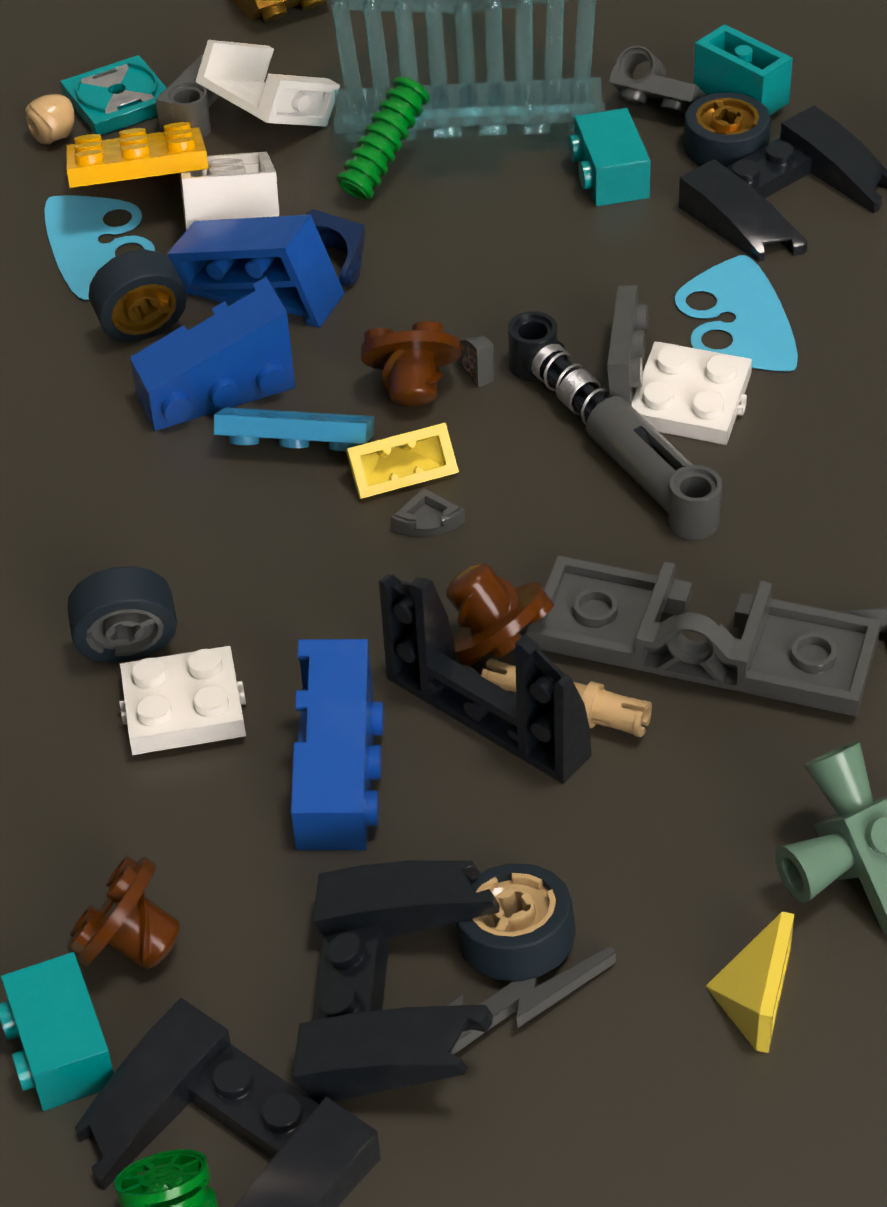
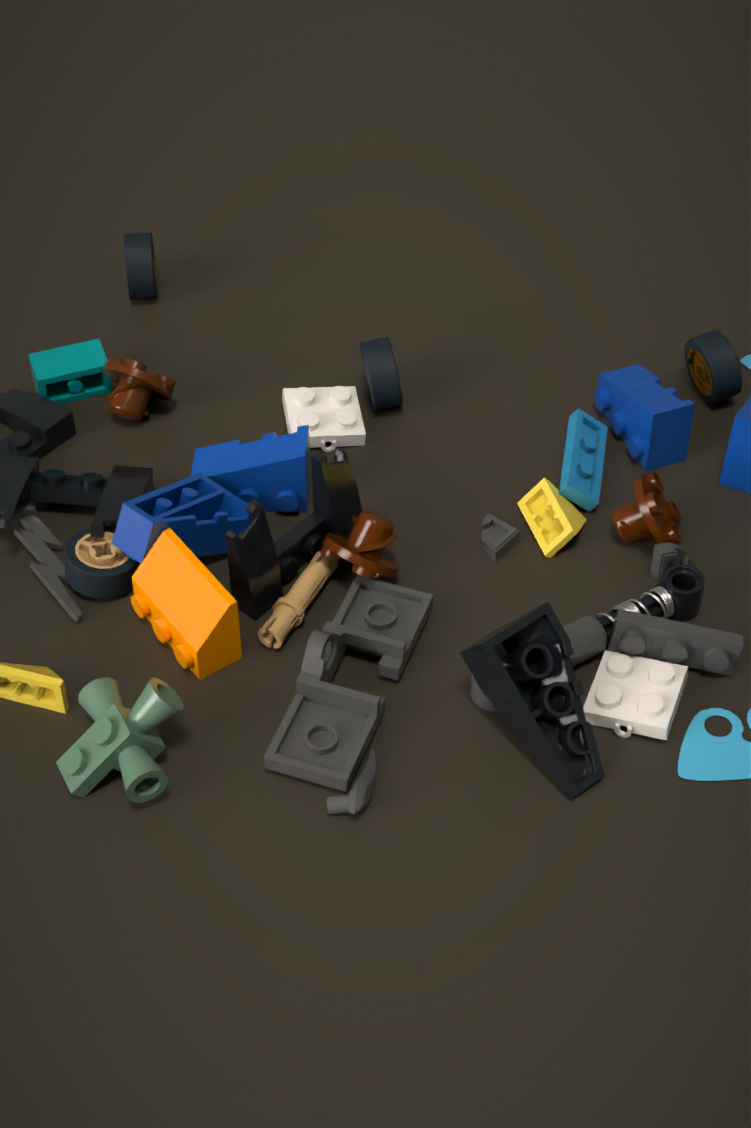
camera: 90 degrees right, 0 degrees up
(460, 805) = (194, 510): none -> blue wedge
(615, 792) = (187, 607): none -> light orange slope
(734, 442) = (534, 688): none -> black wedge

